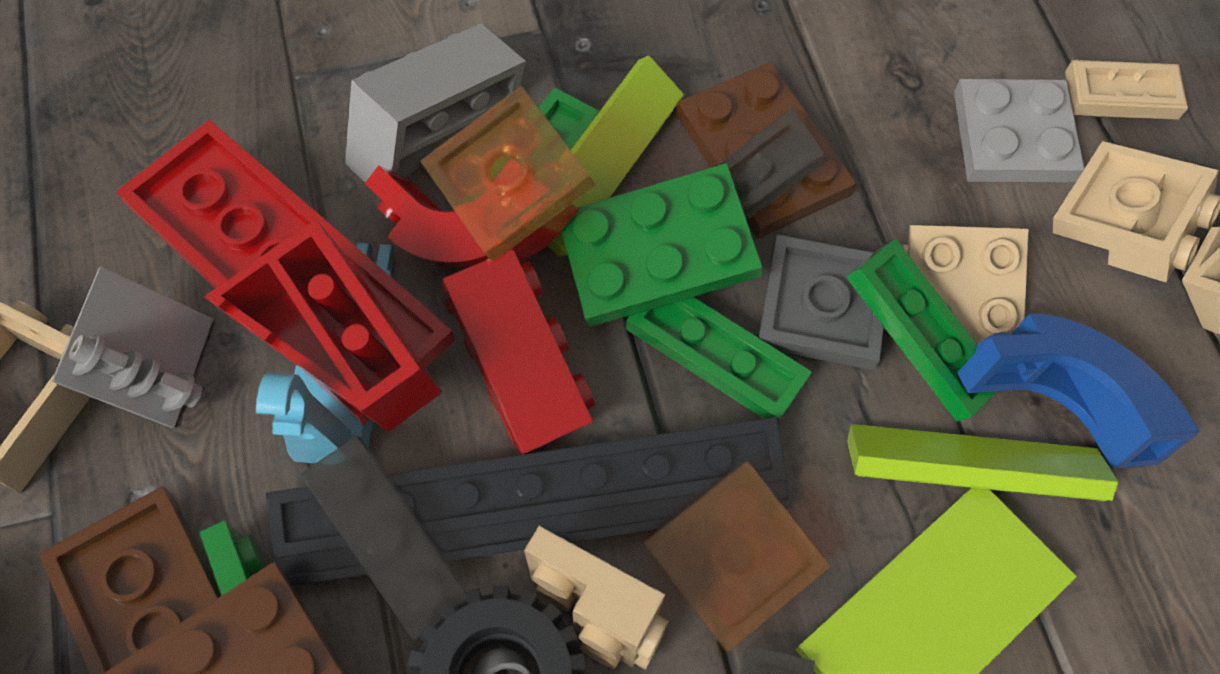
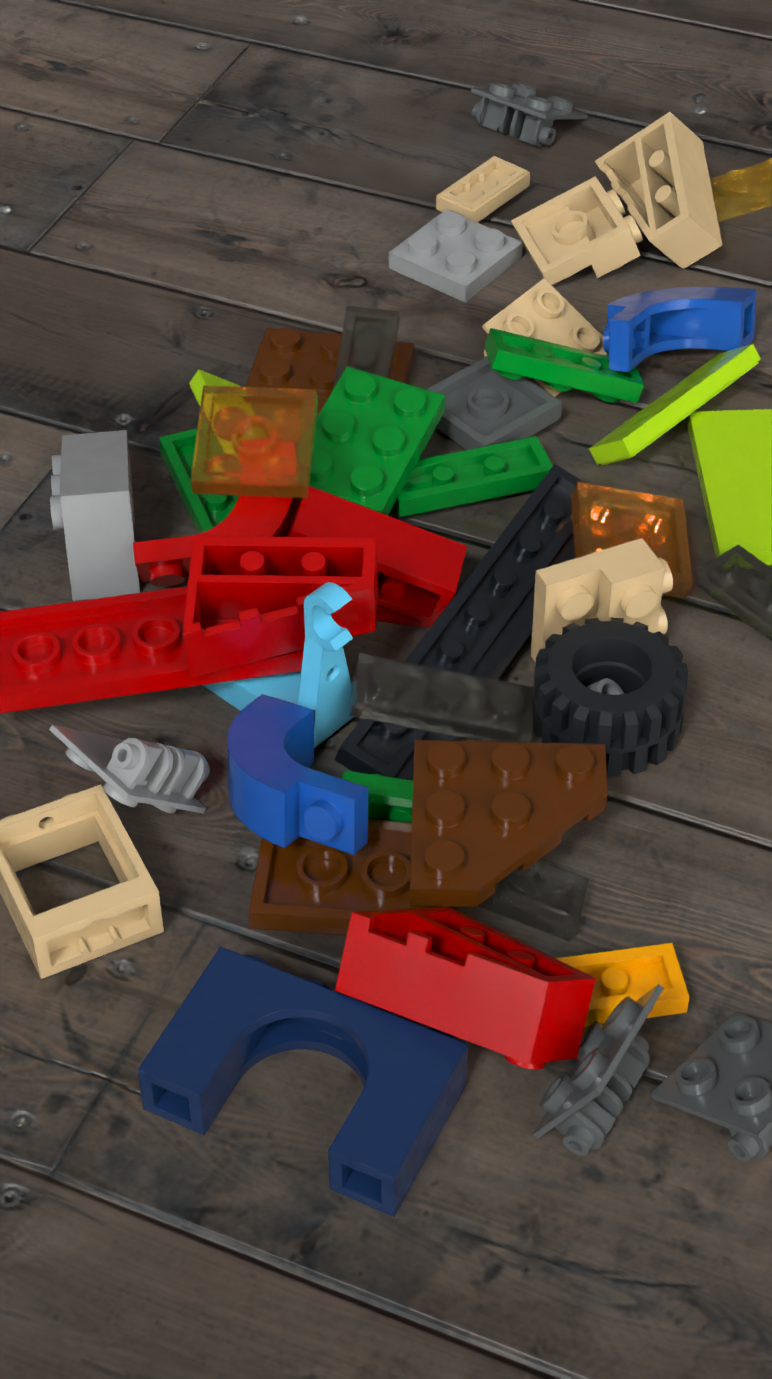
camera: 50 degrees left, 20 degrees down
(169, 458) = (278, 792): none -> blue arch

